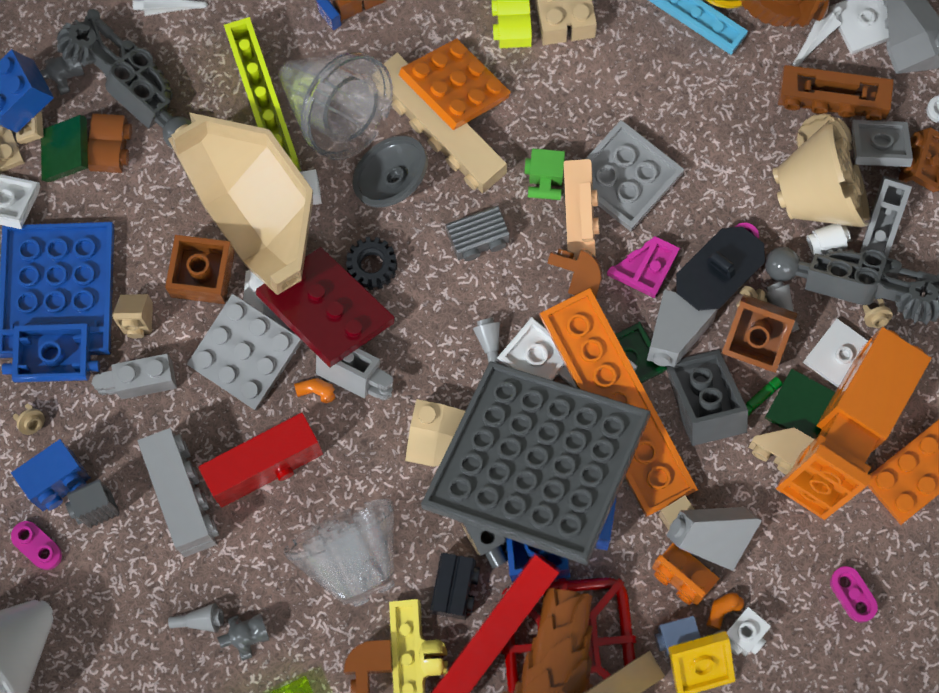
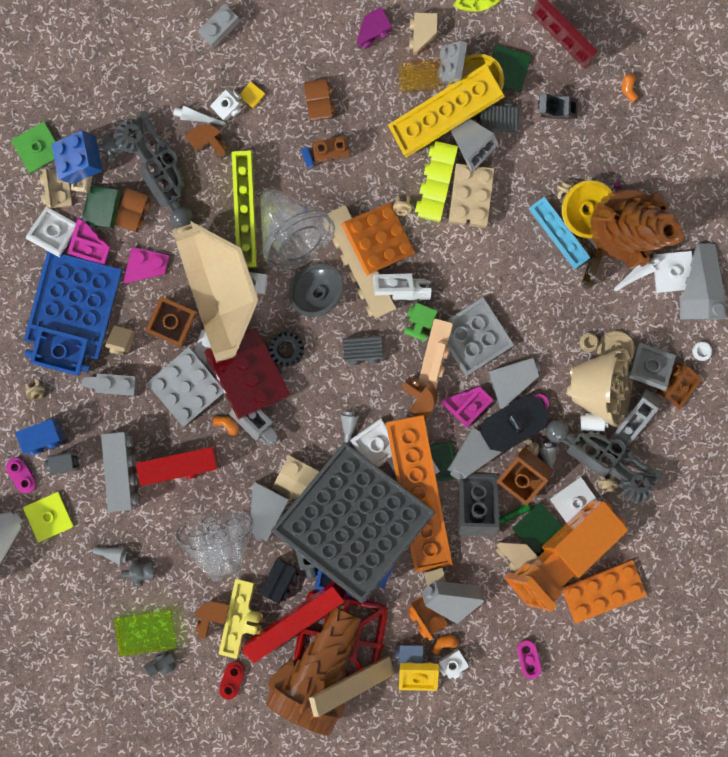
camera: 15 degrees right, 15 degrees up
(56, 202) = (88, 244): none -> dark pink wing
(90, 594) = (48, 517): none -> neon yellow plate
(144, 209) = (145, 264): none -> dark pink wing
(184, 21) = (204, 135): none -> dark orange brick
(405, 484) = (265, 510): none -> light grey slope
(475, 38) = (402, 208): none -> tan plate
(507, 133) = (401, 287): none -> white plate
(696, 214) = (513, 379): none -> light grey slope
(755, 42) = (592, 268): none -> dark brown tile
(784, 140) = (589, 342): none -> tan plate
(872, 104) = (663, 333): dark orange brick -> none

